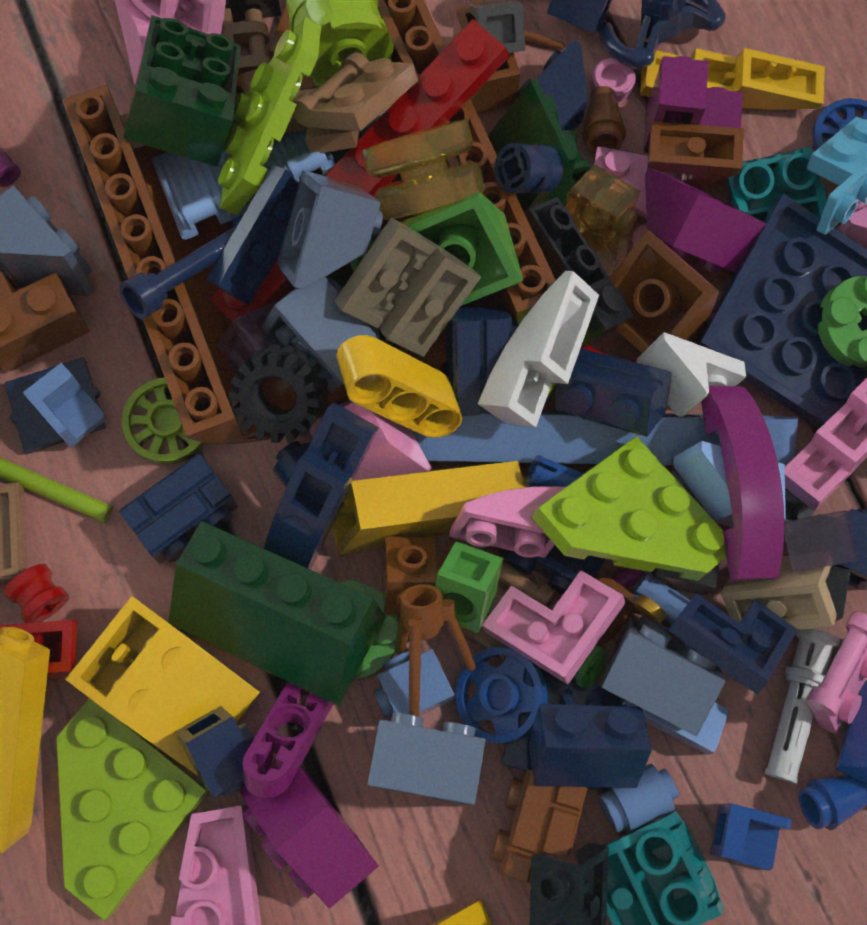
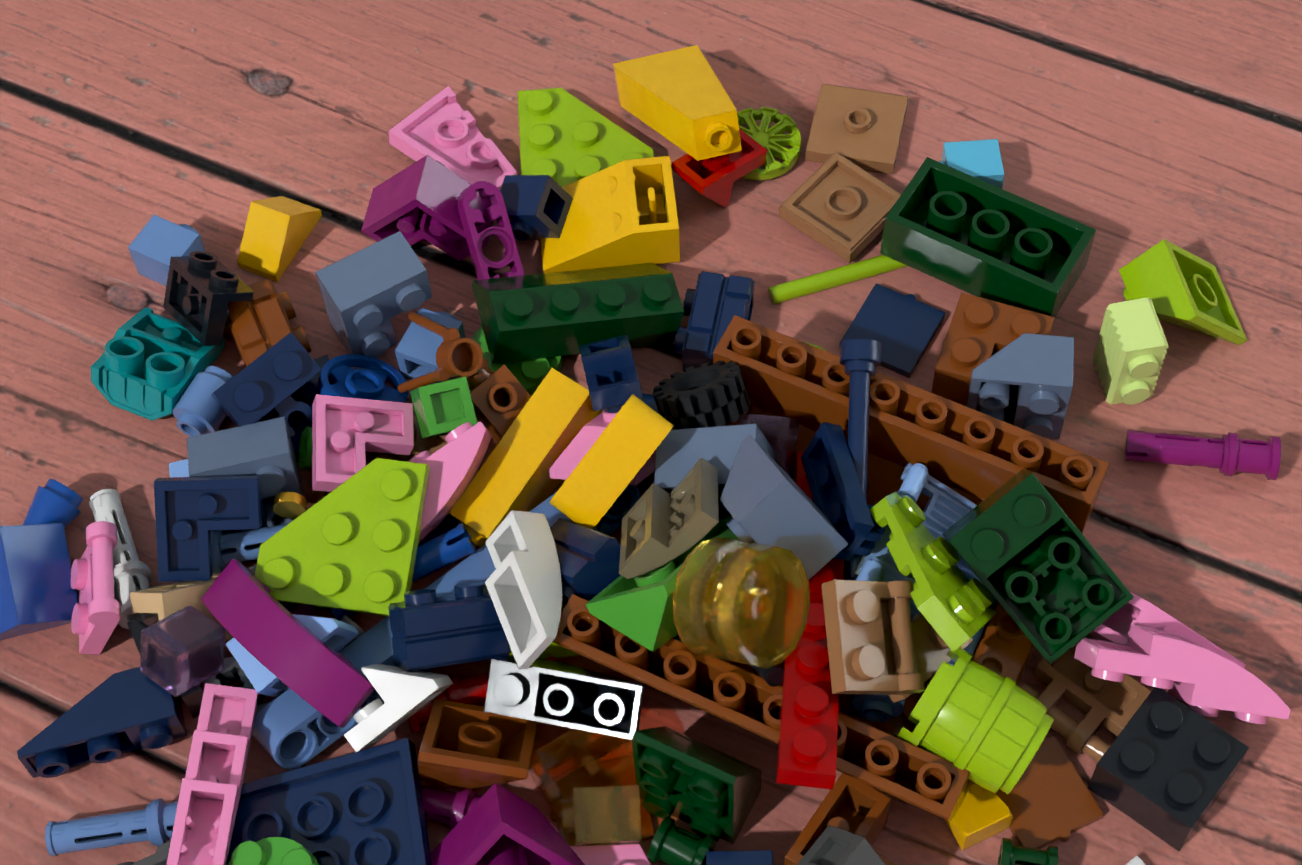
camera: 145 degrees right, 15 degrees down
(36, 594) = (757, 205): red wheel -> none
(65, 405) = (875, 315): medium blue panel -> none
(528, 168) = (667, 705): dark blue wheel -> none
(747, 835) = (108, 446): blue panel -> none

